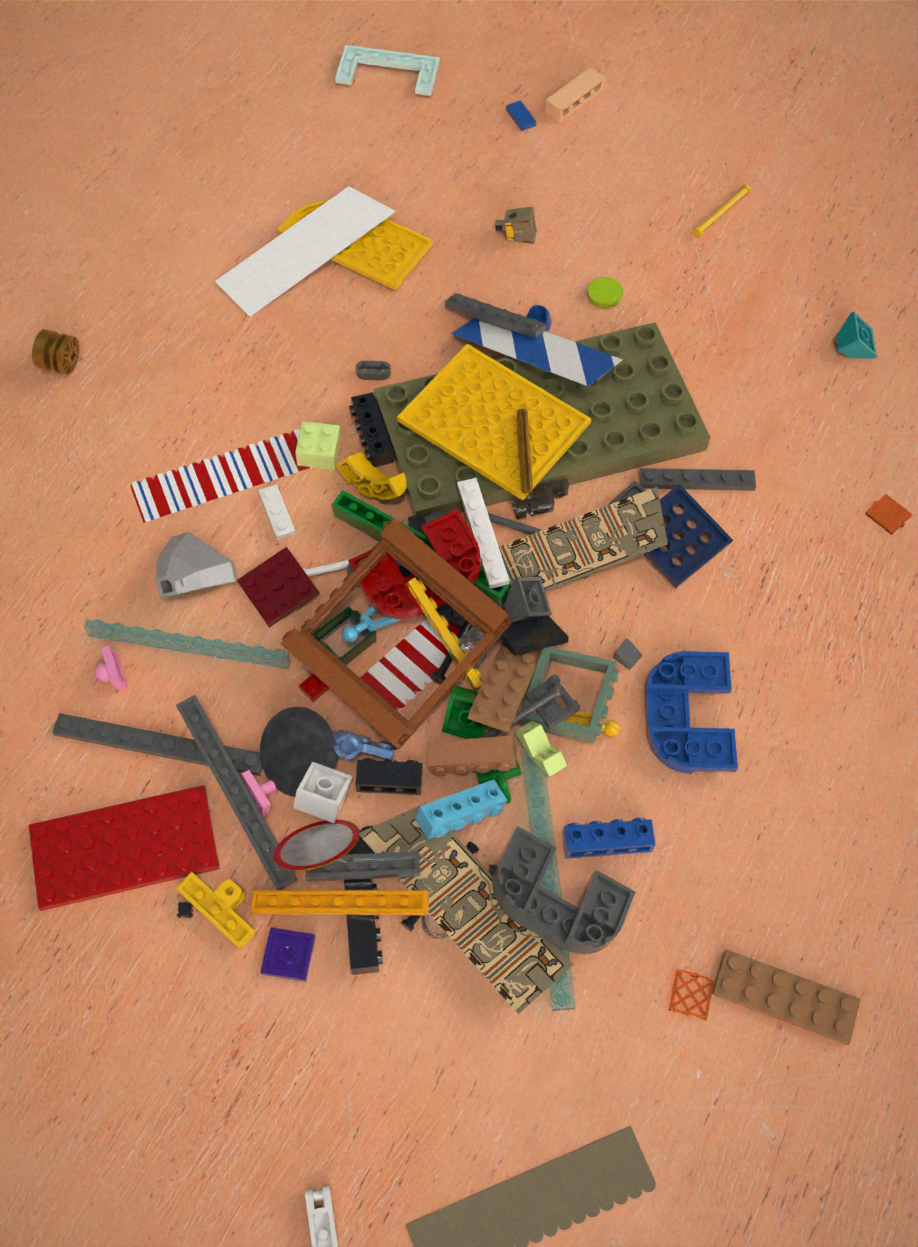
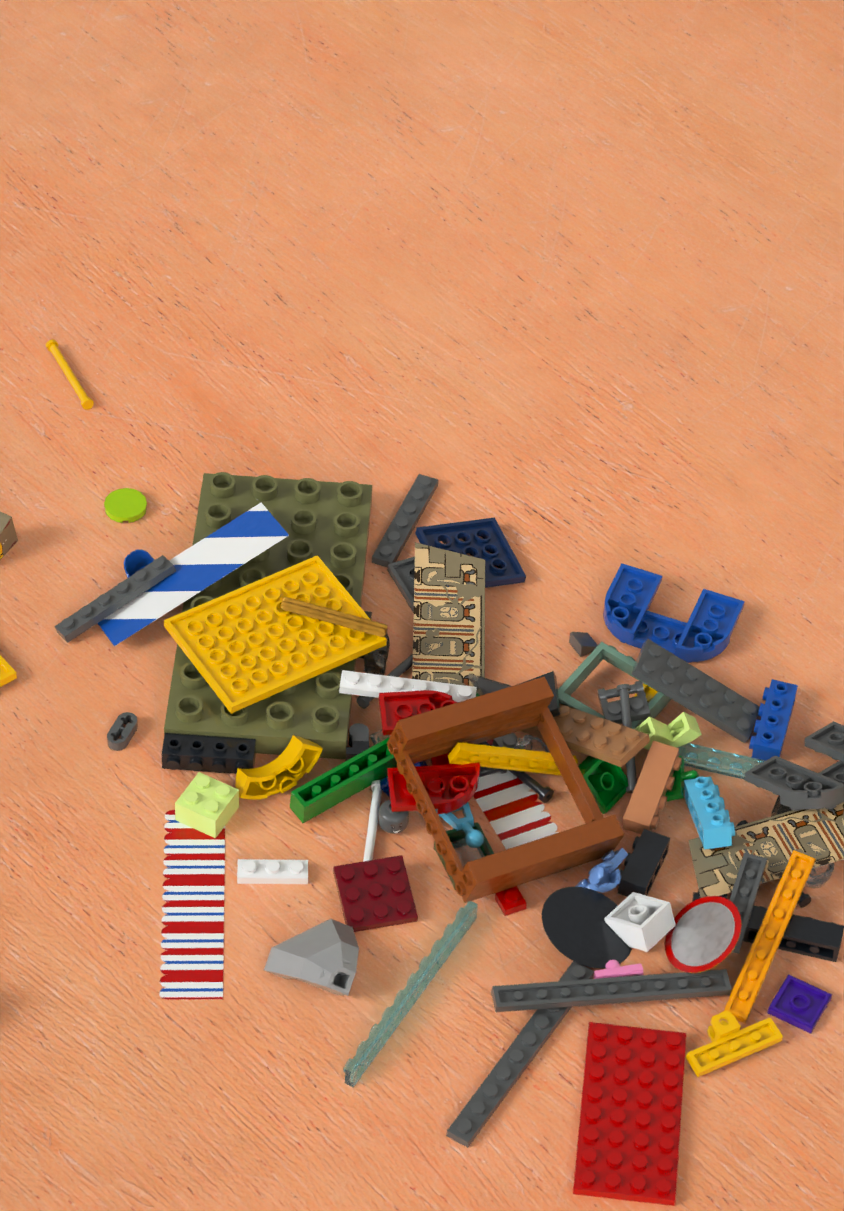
camera: 70 degrees left, 15 degrees down
(110, 669) = (412, 1068): bright pink tile -> none
(185, 910) = (722, 1076): black piece -> none
(598, 756) = (695, 690): none -> dark grey plate
(856, 338) = (301, 341): teal slope -> none
(888, 514) = (514, 402): clear orange piece -> none

